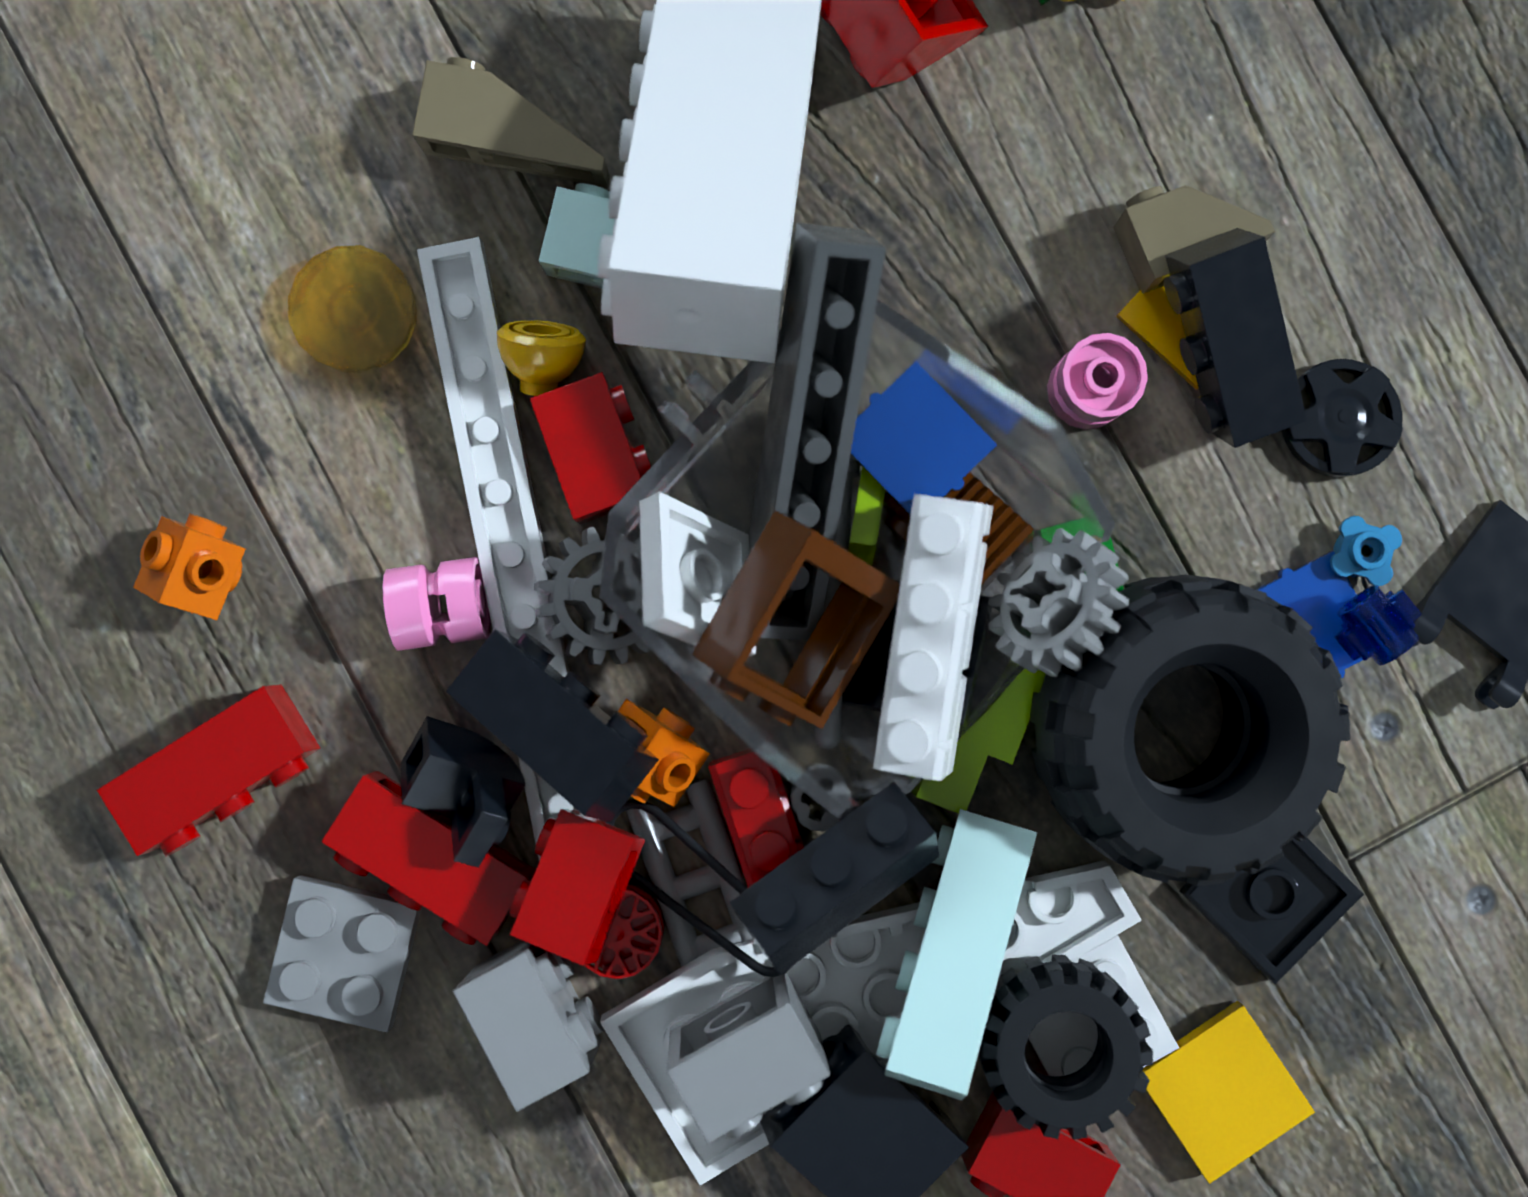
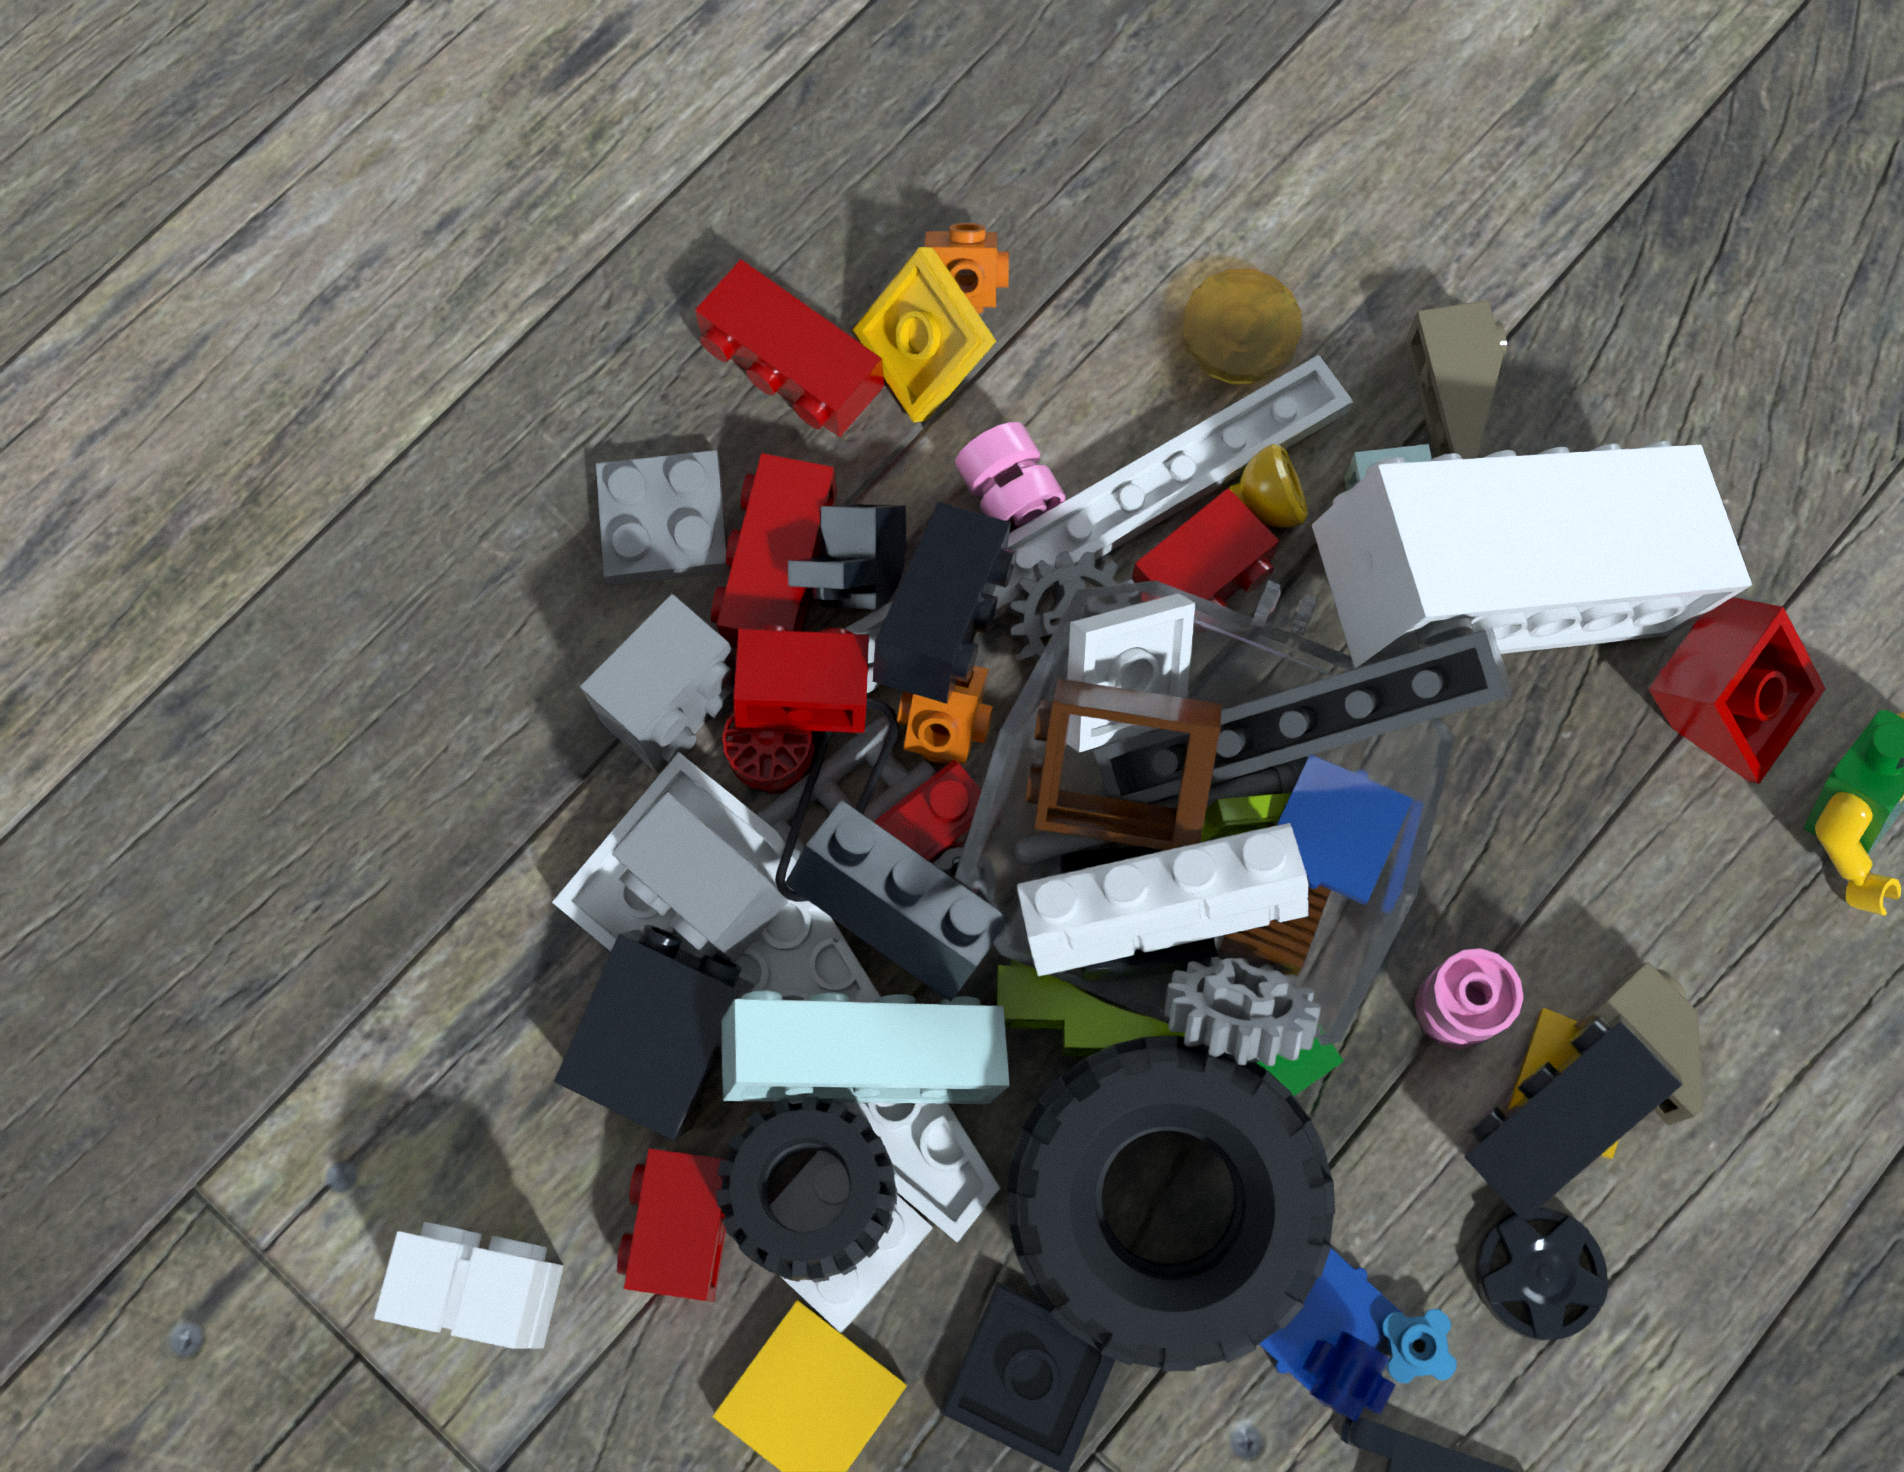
camera: 75 degrees right, 15 degrees down
(249, 633) = (924, 334): none -> yellow tile

